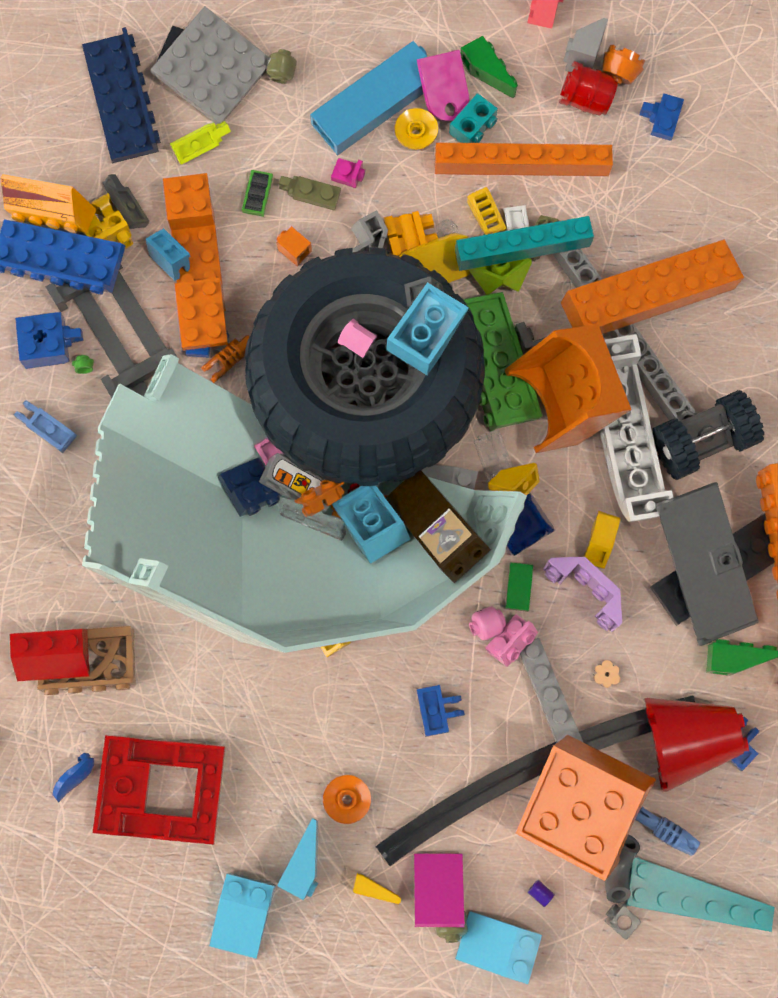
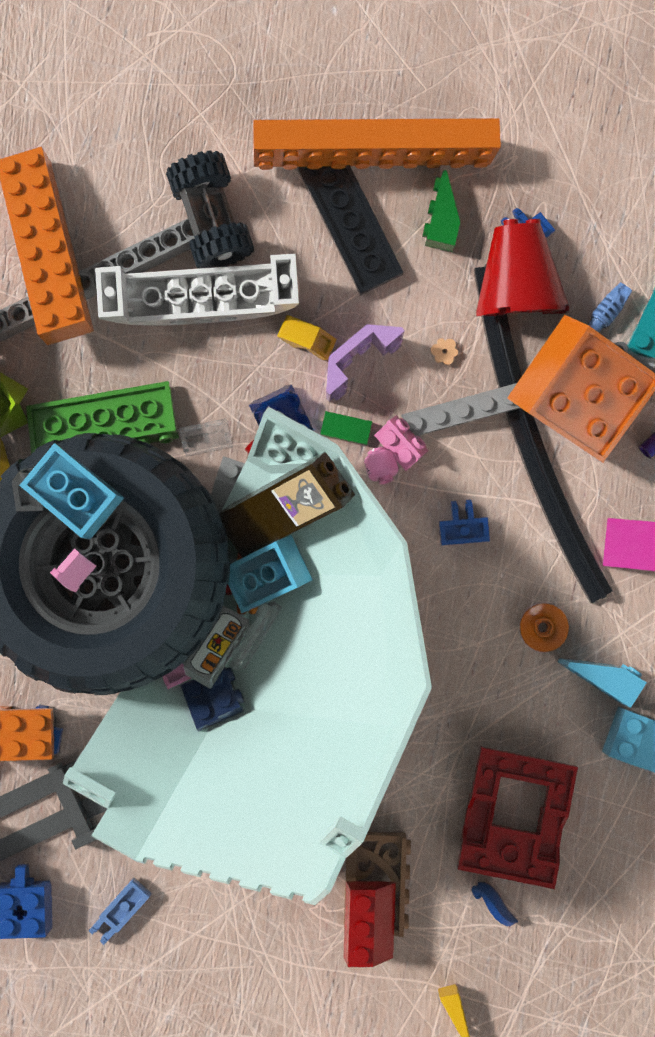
camera: 85 degrees left, 10 degrees up
(83, 364) = (55, 865): bright green plate -> none
(227, 357) = (65, 709): orange hinge -> none
(312, 498) = (236, 633): orange hinge -> none
(369, 888) = (634, 611): yellow slope -> none
(518, 478) = (239, 419): yellow slope -> none
(525, 337) = (80, 387): dark grey bracket -> none
(575, 384) = (143, 340): orange container -> none
(707, 563) = (345, 231): dark grey door -> none

